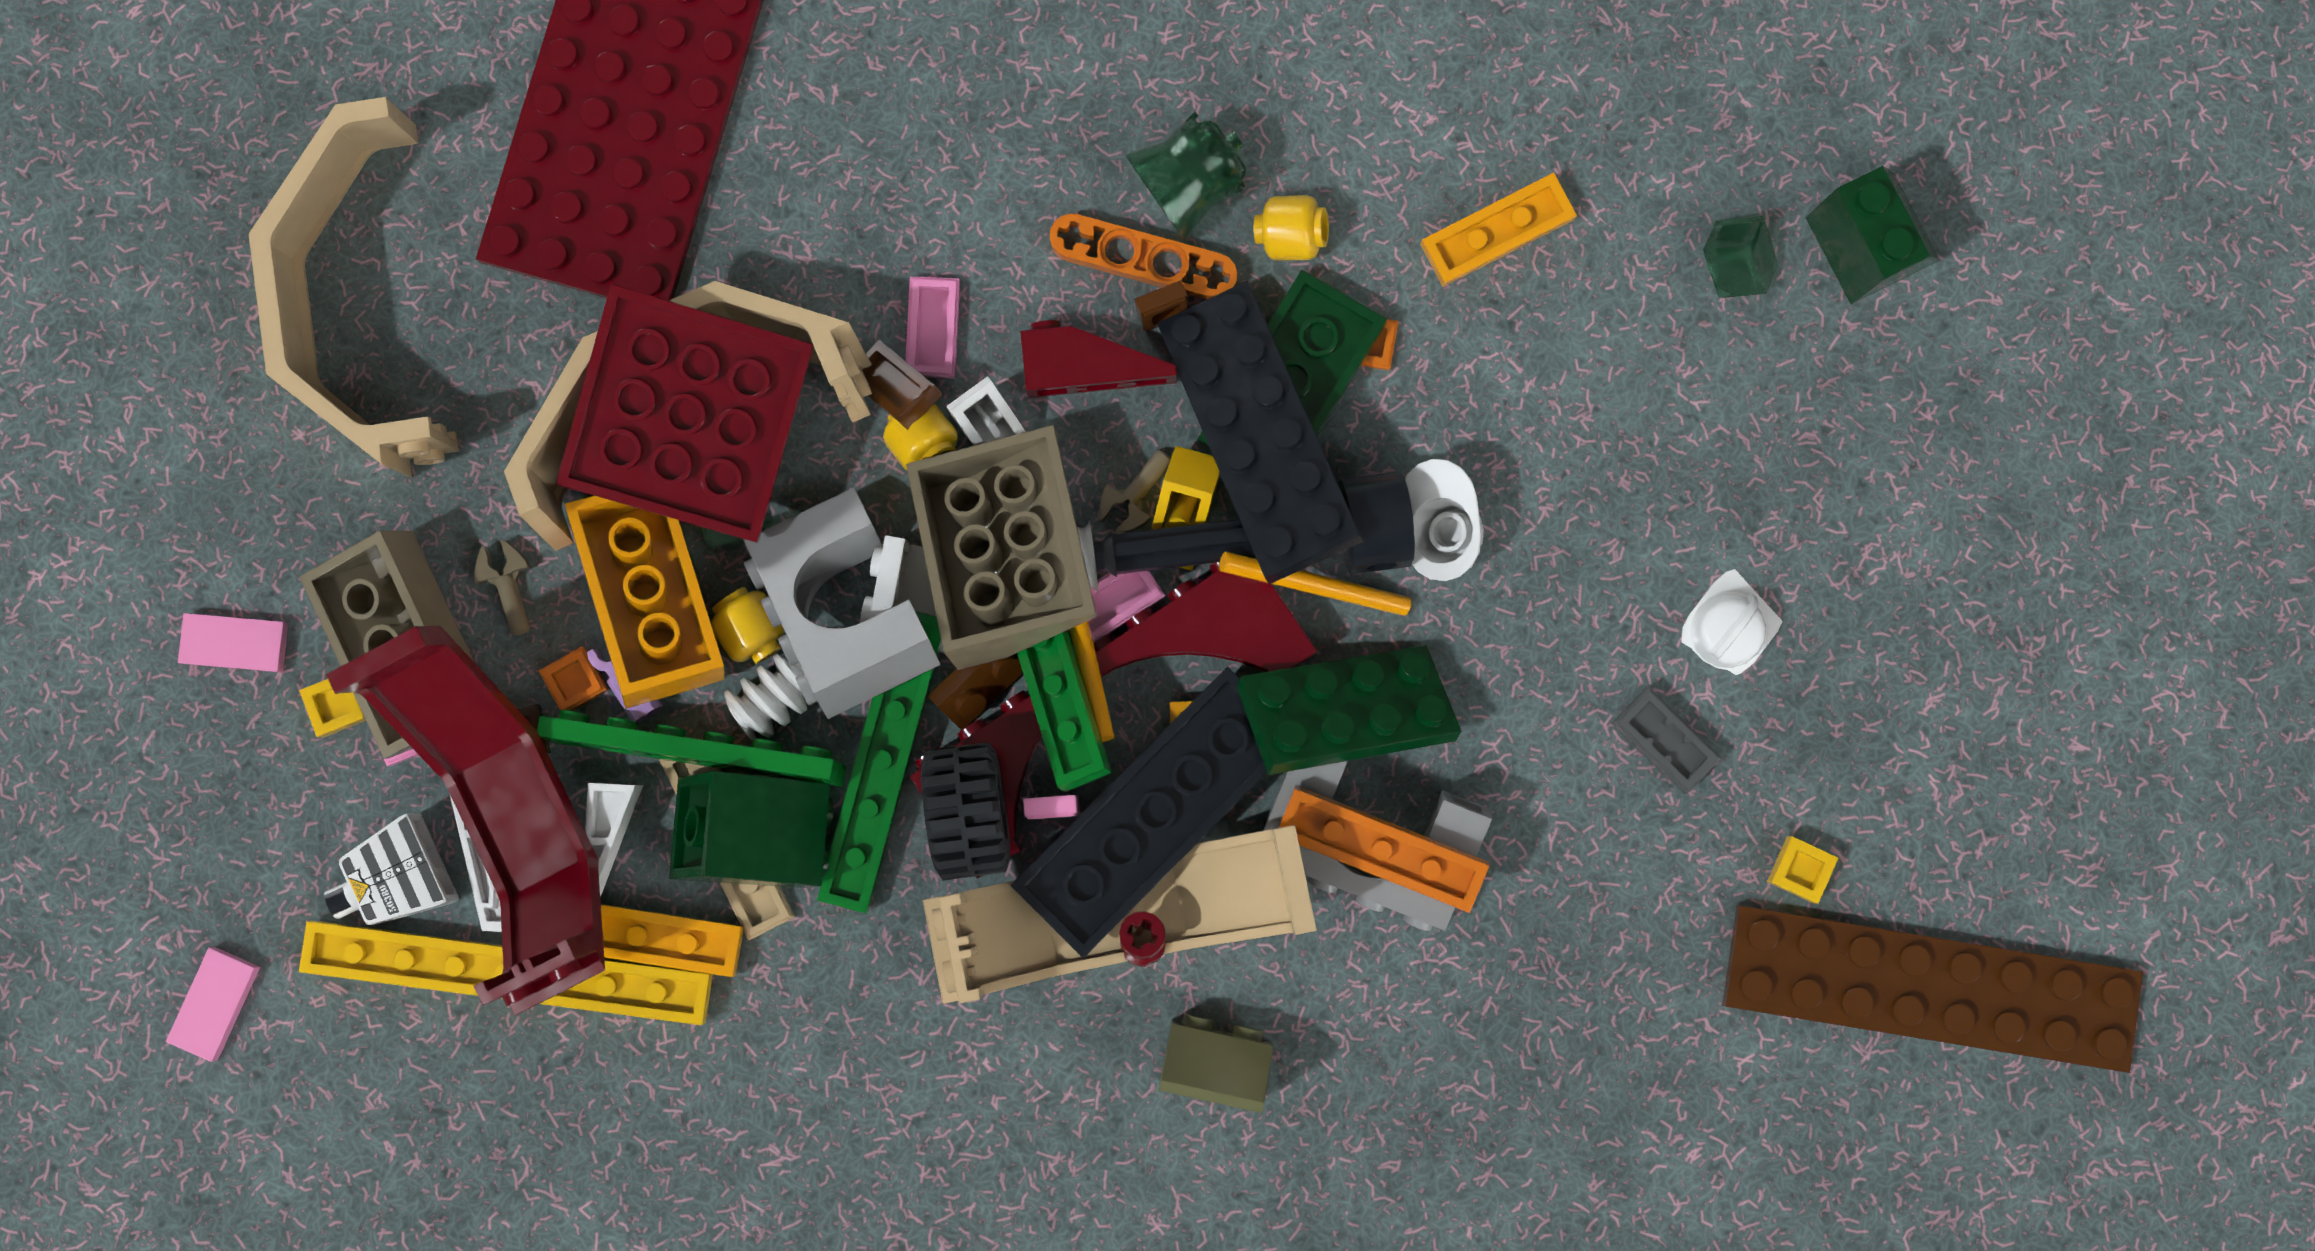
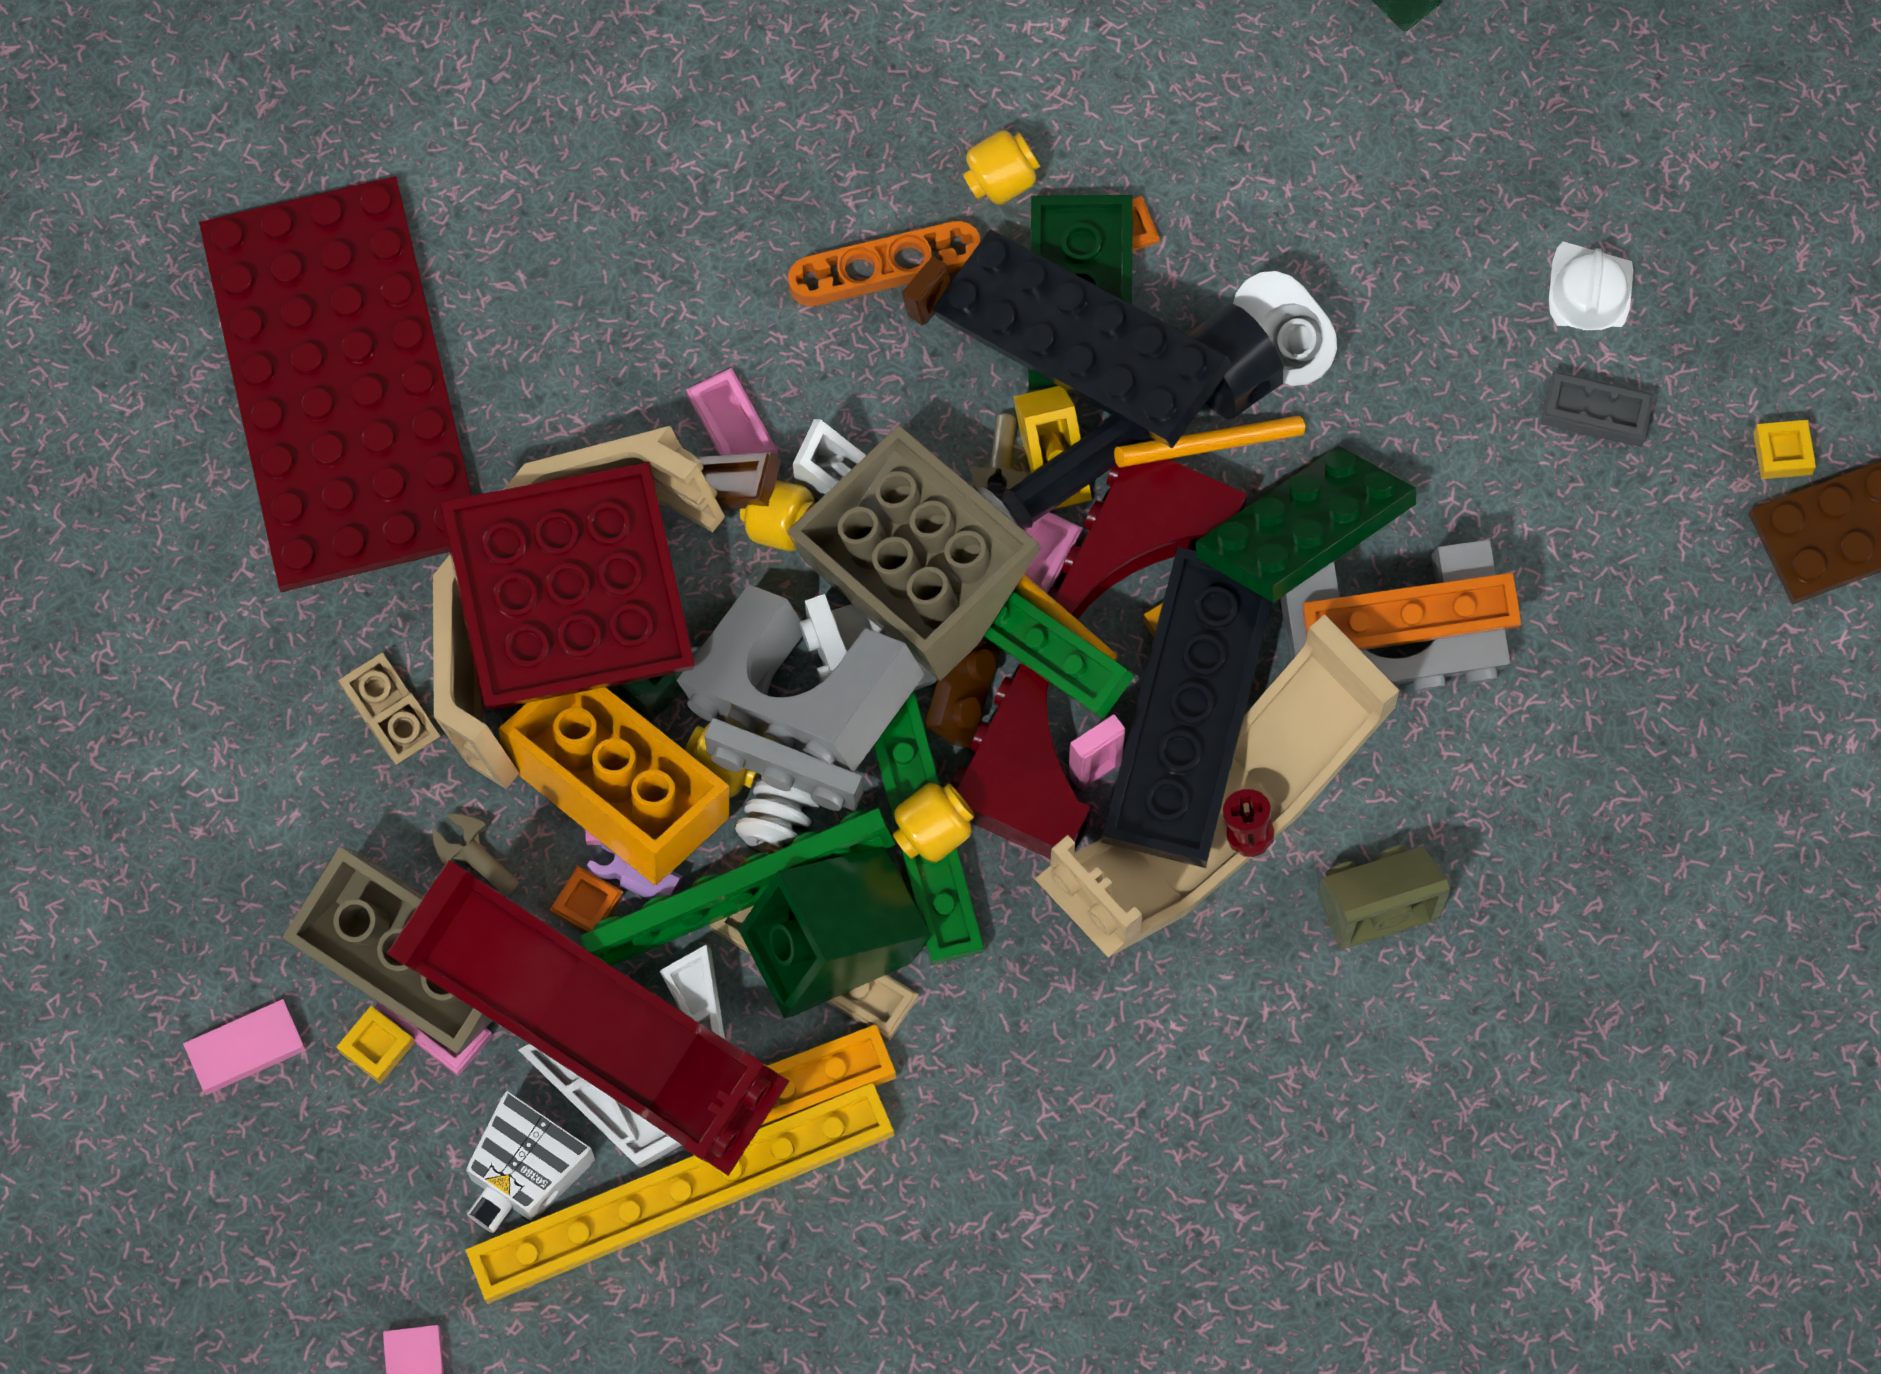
camera: 30 degrees left, 15 degrees down
(278, 260) = (290, 779): tan panel -> none
(506, 414) = (389, 709): none -> tan slope
(774, 676) = (783, 766): none -> light grey plate
(878, 791) = (932, 822): none -> yellow head
(965, 811) = (1027, 776): black tyre -> none
(1076, 361) = (888, 373): dark red slope -> none
(1191, 171) = (888, 161): clear green hat -> none
(1498, 229) = (1180, 76): light orange plate -> none

